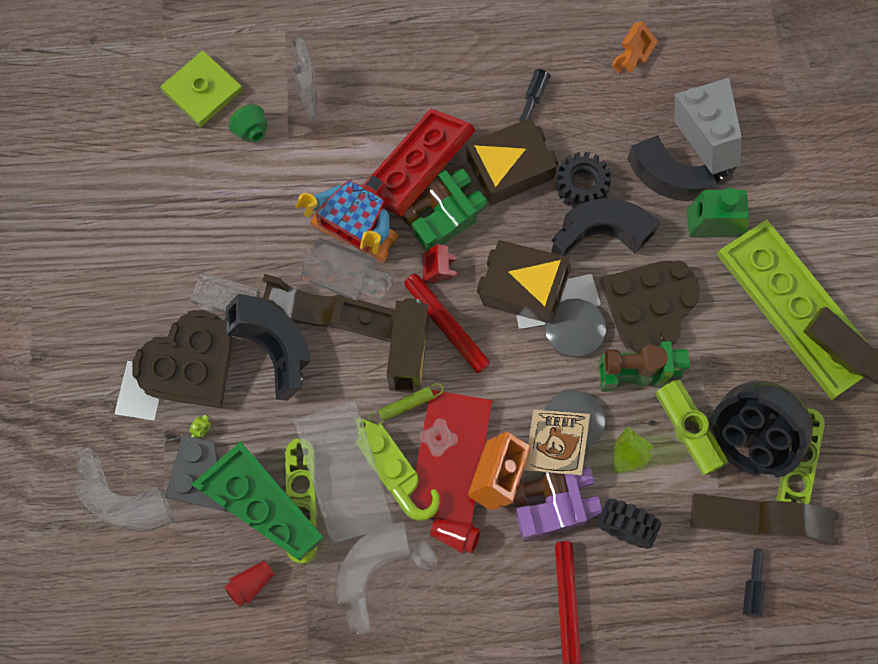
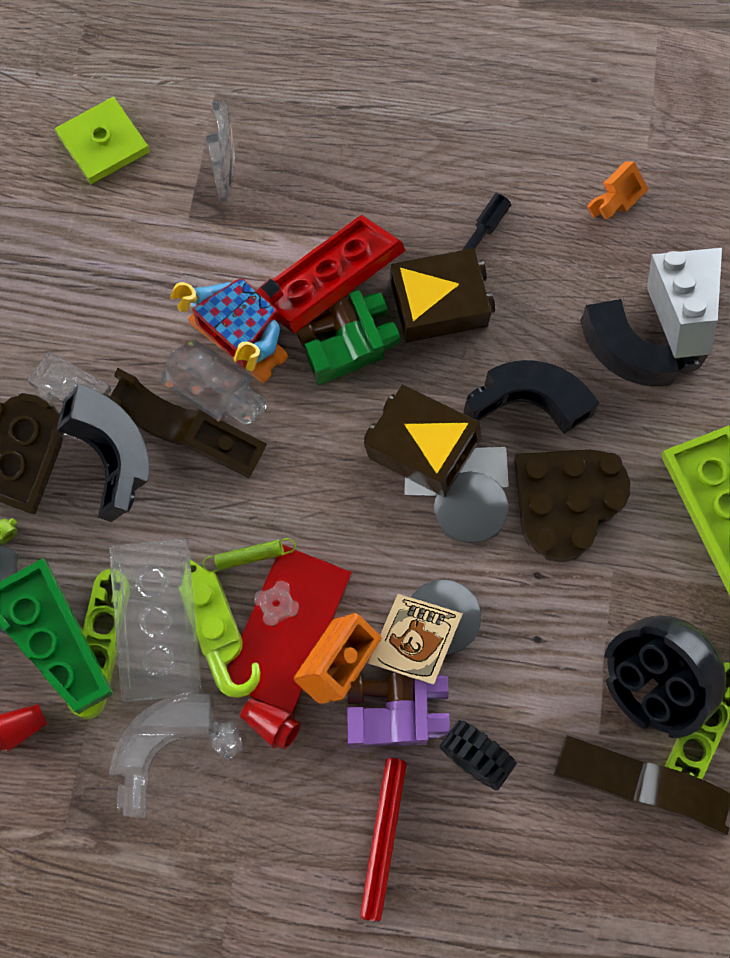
camera: 10 degrees right, 0 degrees up
(248, 123) = (145, 190): green cone -> none
(408, 346) = (265, 487): dark brown brick -> none
(436, 264) = (323, 399): red tile -> none
(447, 323) = (320, 470): red axle -> none
(582, 165) = (525, 317): black tyre -> none
(630, 452) = (501, 669): clear neon green tile -> none
(649, 366) = (540, 572): hips -> none
(701, 445) = (589, 679): lime piece -> none
(722, 214) = (673, 407): green torso -> none
(755, 588) = (614, 866): black axle -> none

